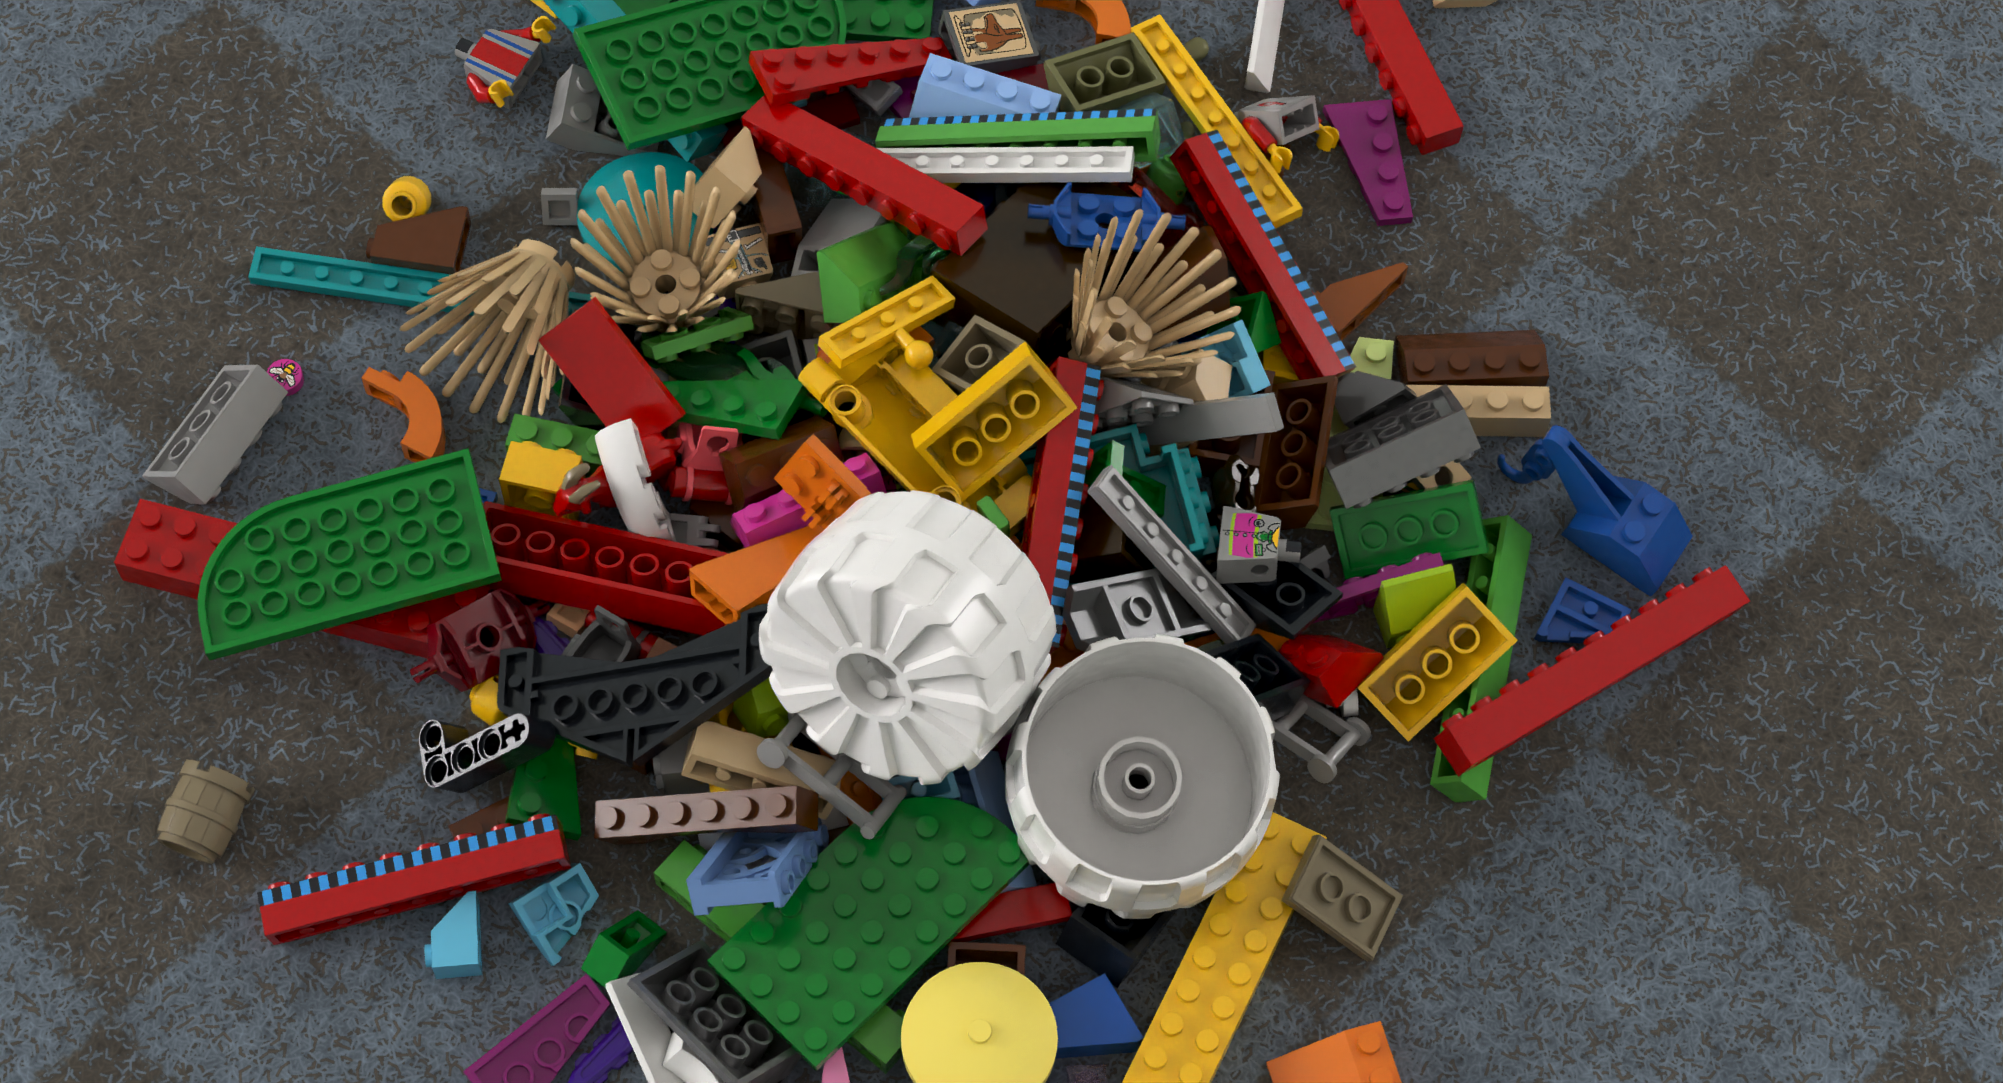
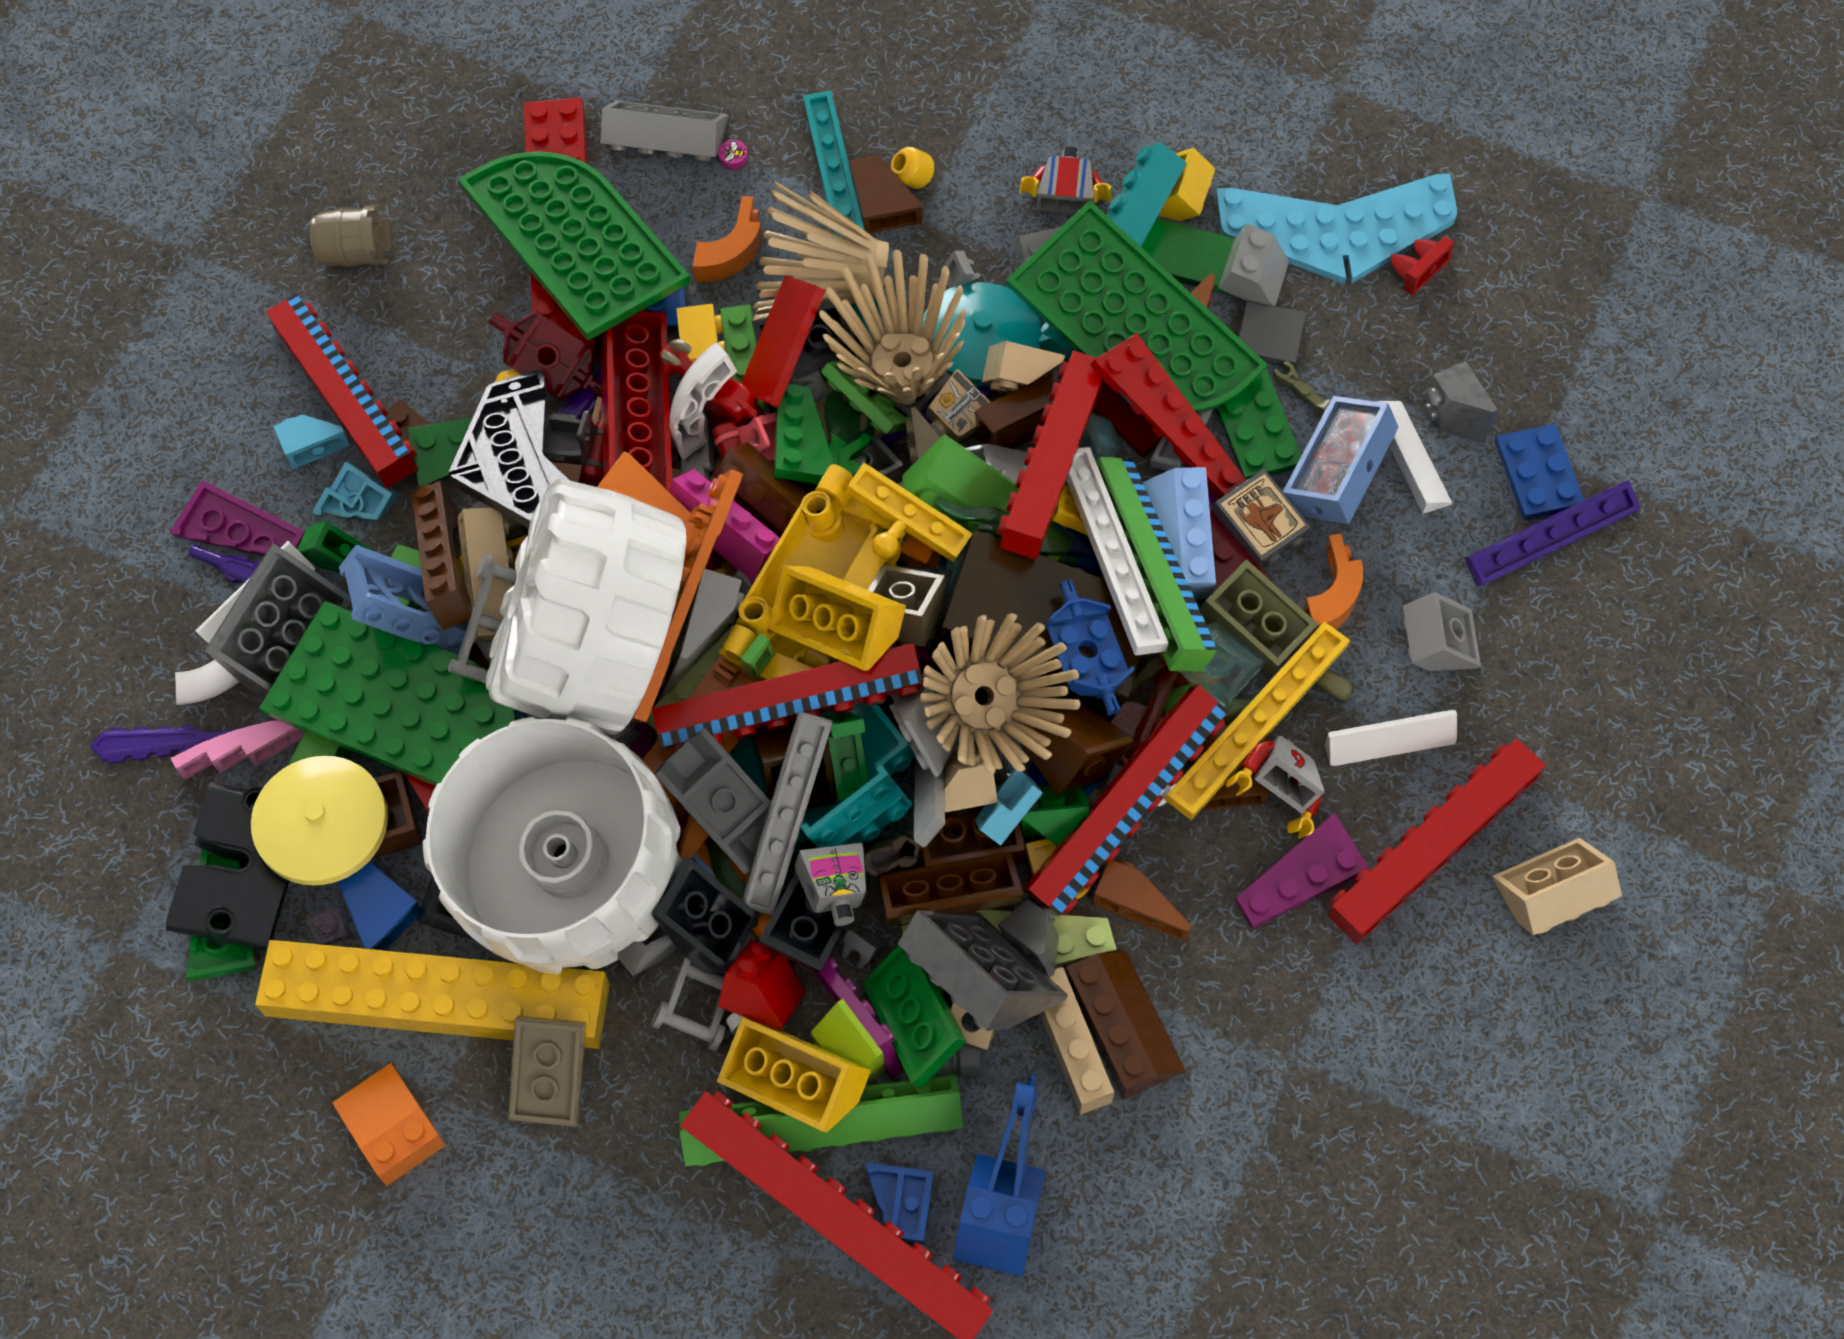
camera: 75 degrees right, 0 degrees up
(463, 762) = (449, 383): black beam -> none

